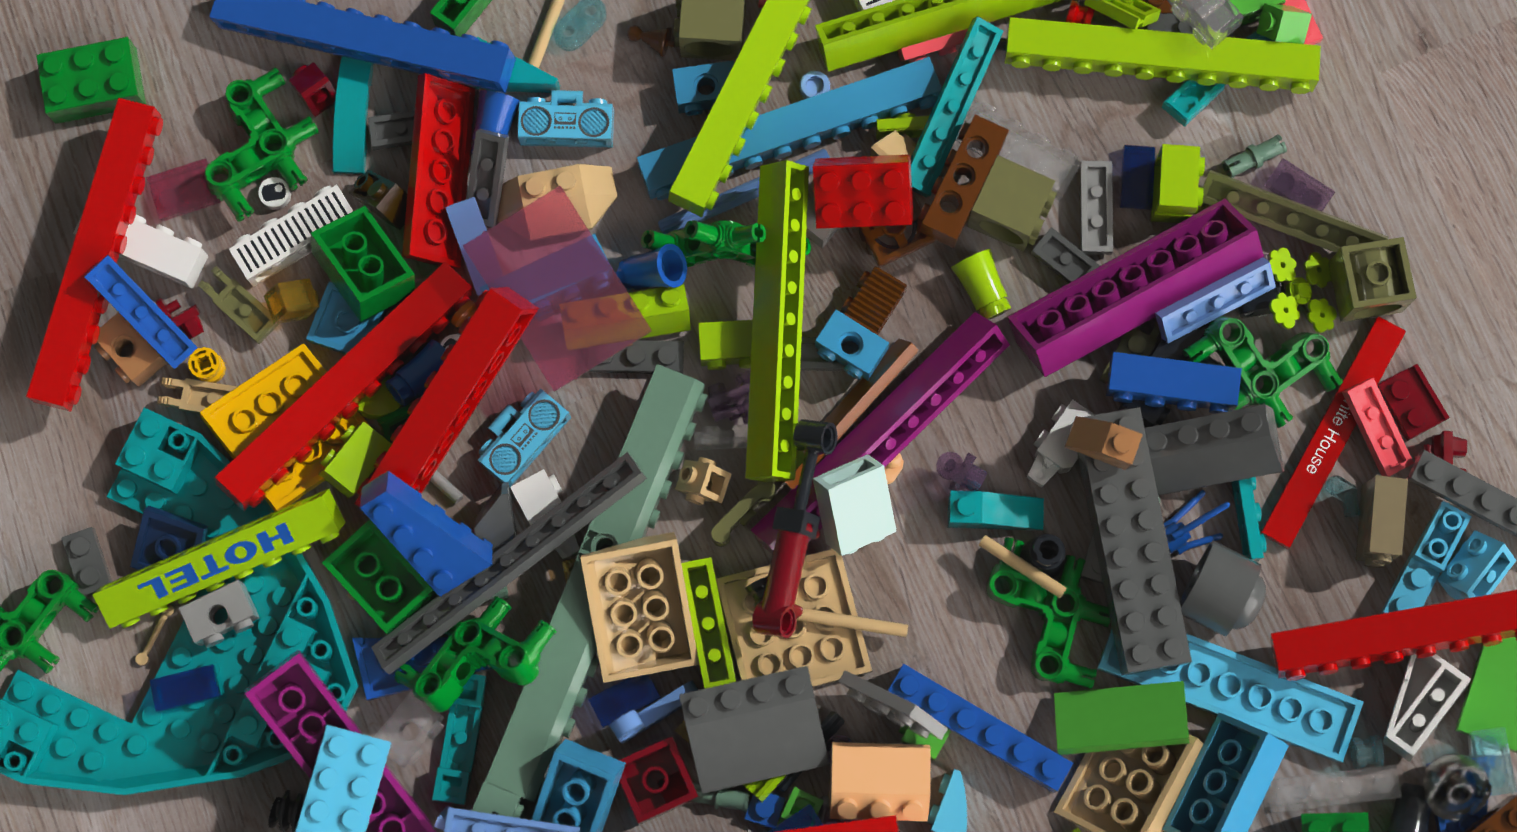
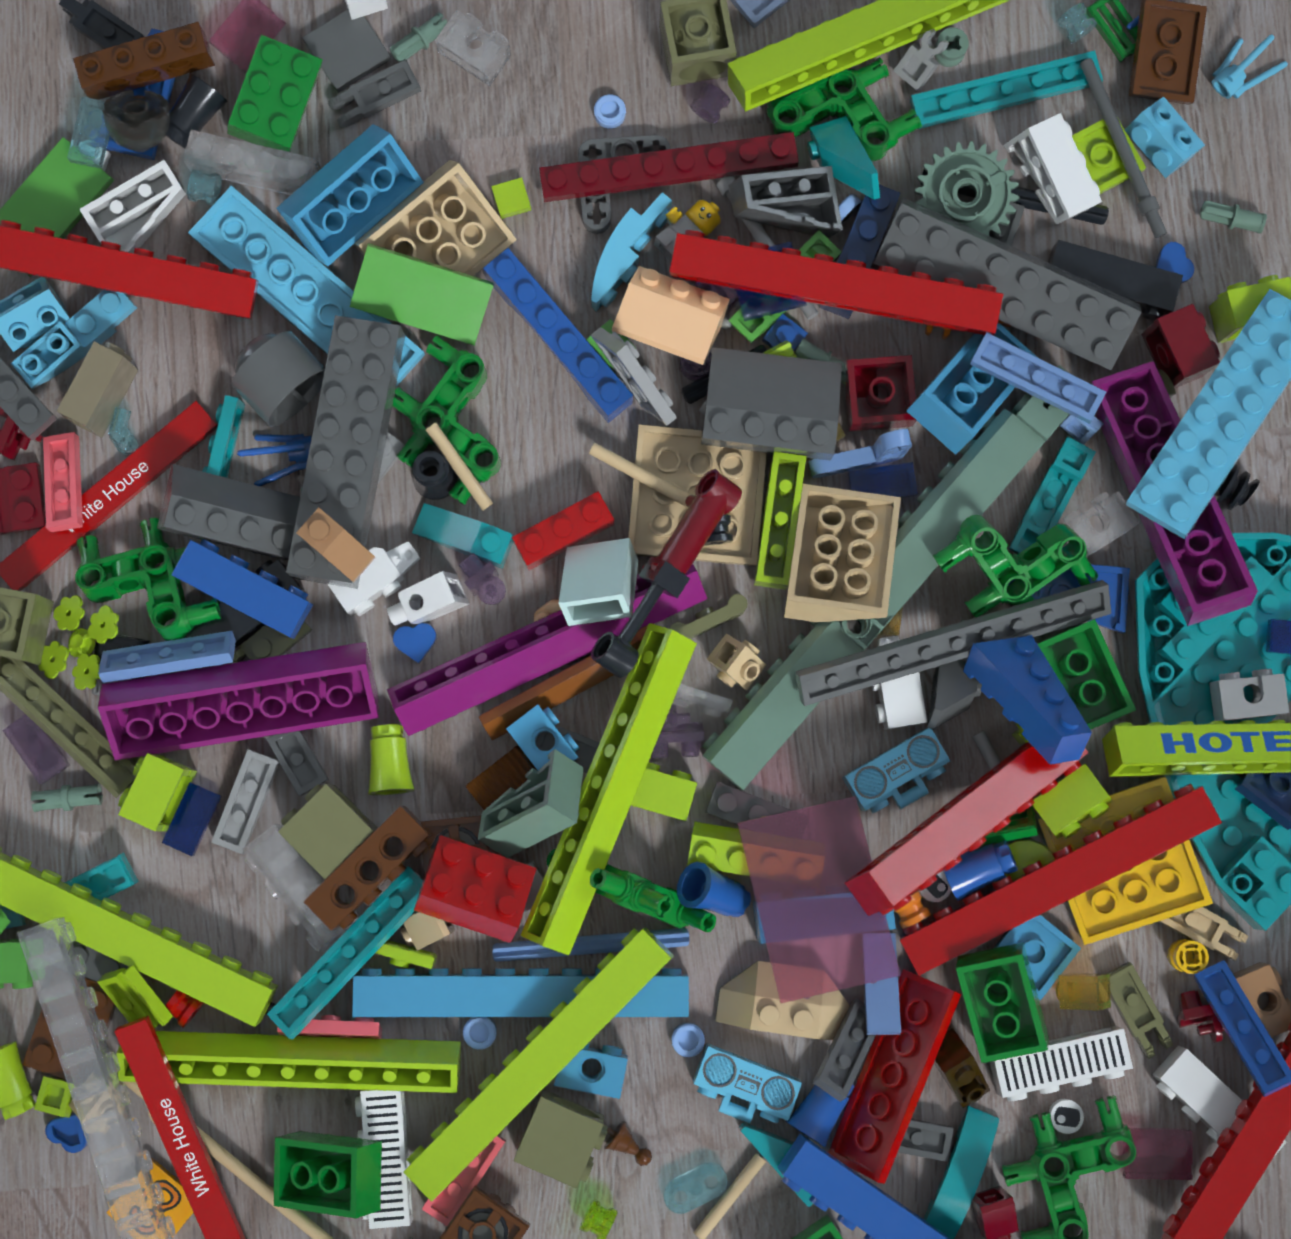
camera: 170 degrees left, 5 degrees up
(630, 143) = (688, 1039): none -> light blue tile
(835, 281) = (536, 809): none -> sand green wedge
(905, 546) = (563, 530): none -> red brick
(1002, 400) = (415, 641): none -> blue tile
(1003, 438) = (440, 596): none -> white torso

